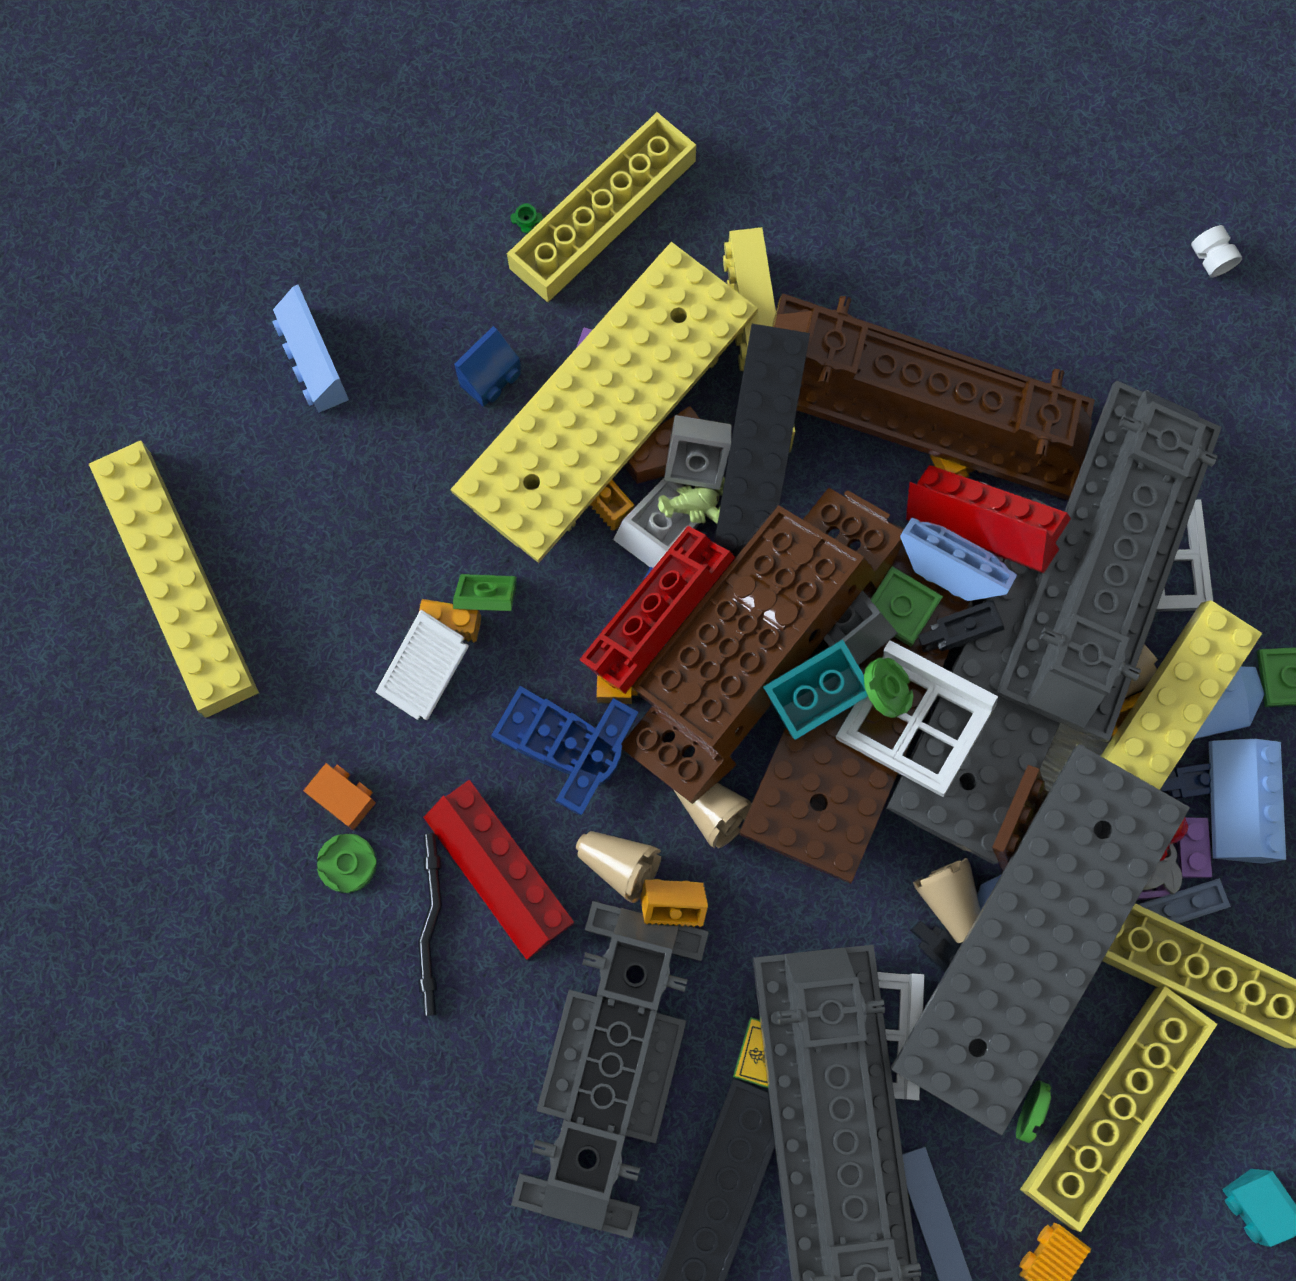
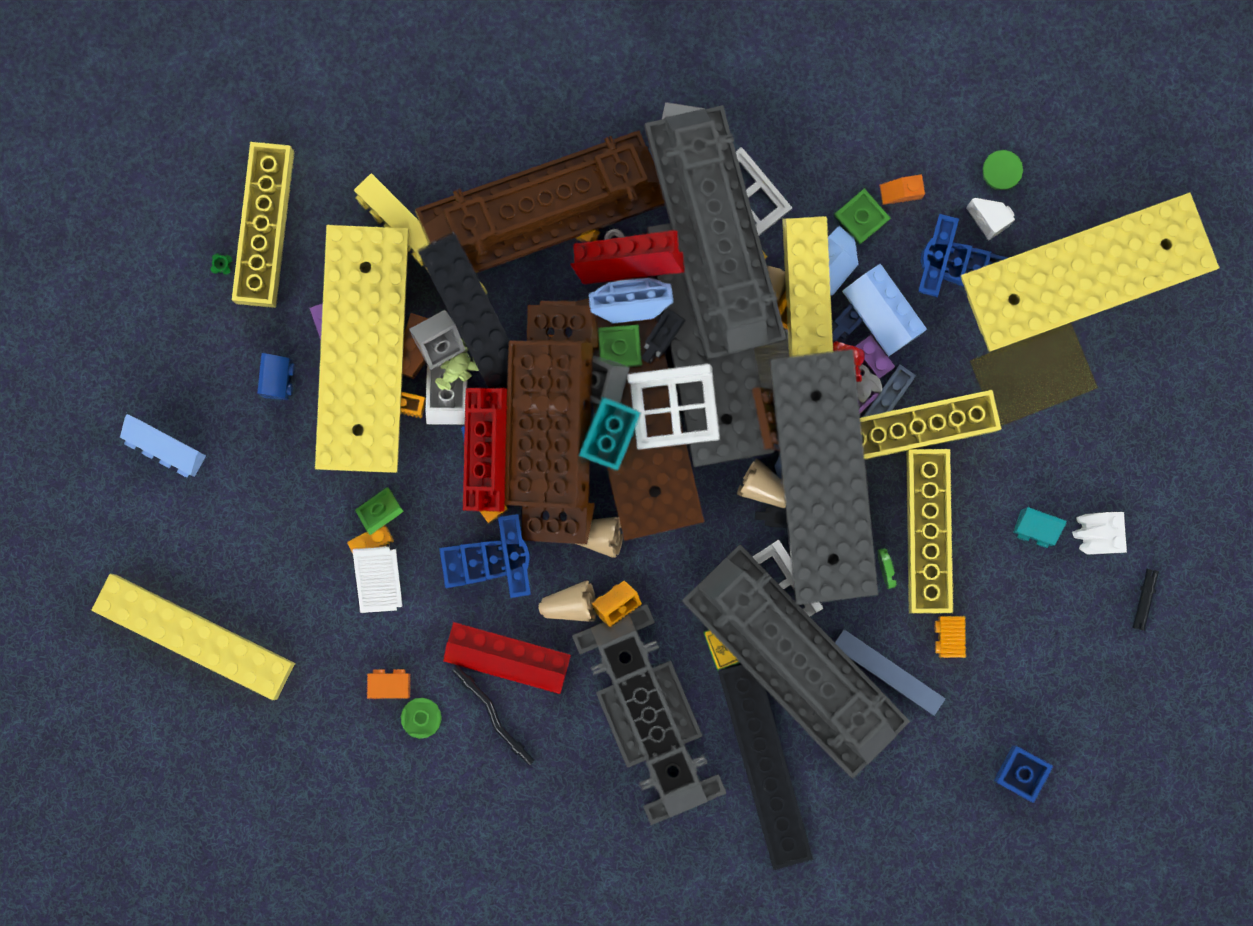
camera: 30 degrees left, 10 degrees up
(888, 687) = (646, 403): bright green tile -> none

